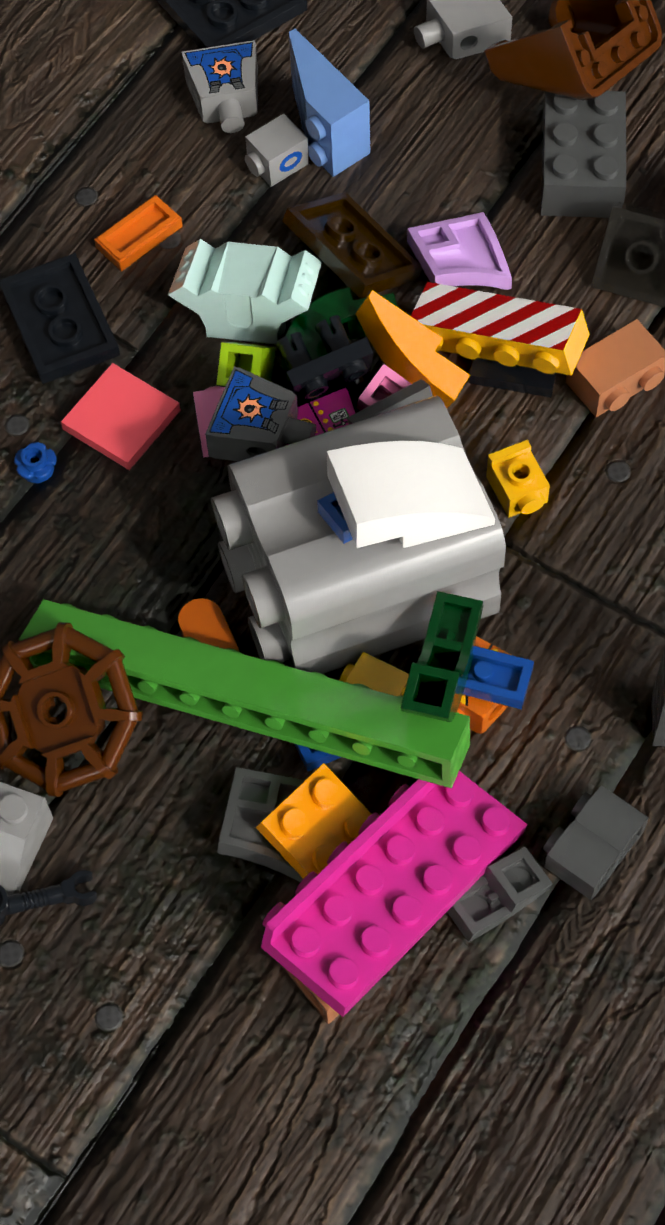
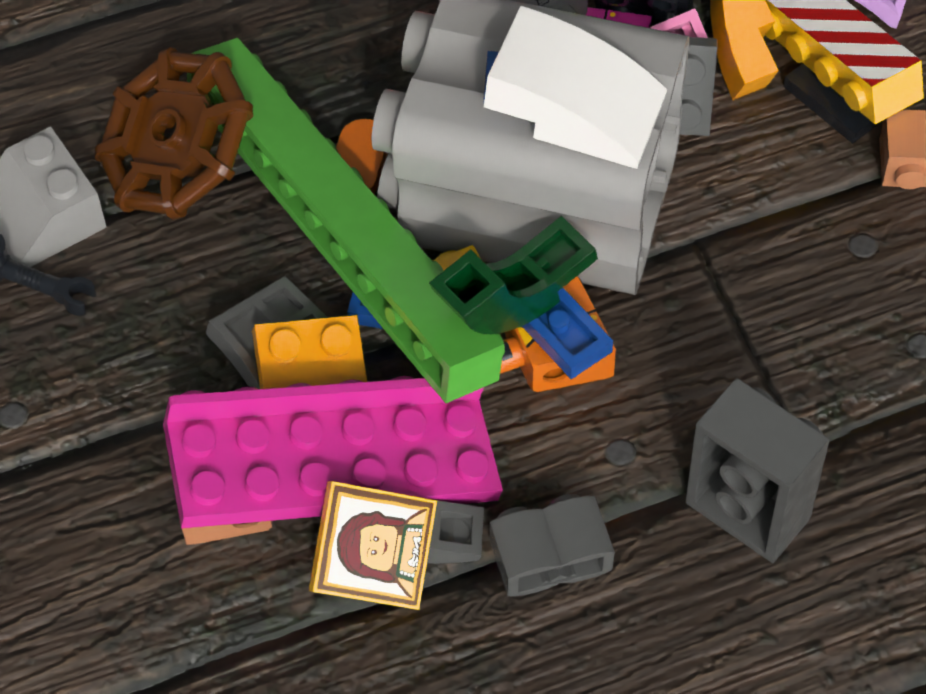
camera: 35 degrees right, 5 degrees down
(480, 931) = (372, 545): none -> tile
(517, 479) = (752, 190): yellow brick -> none

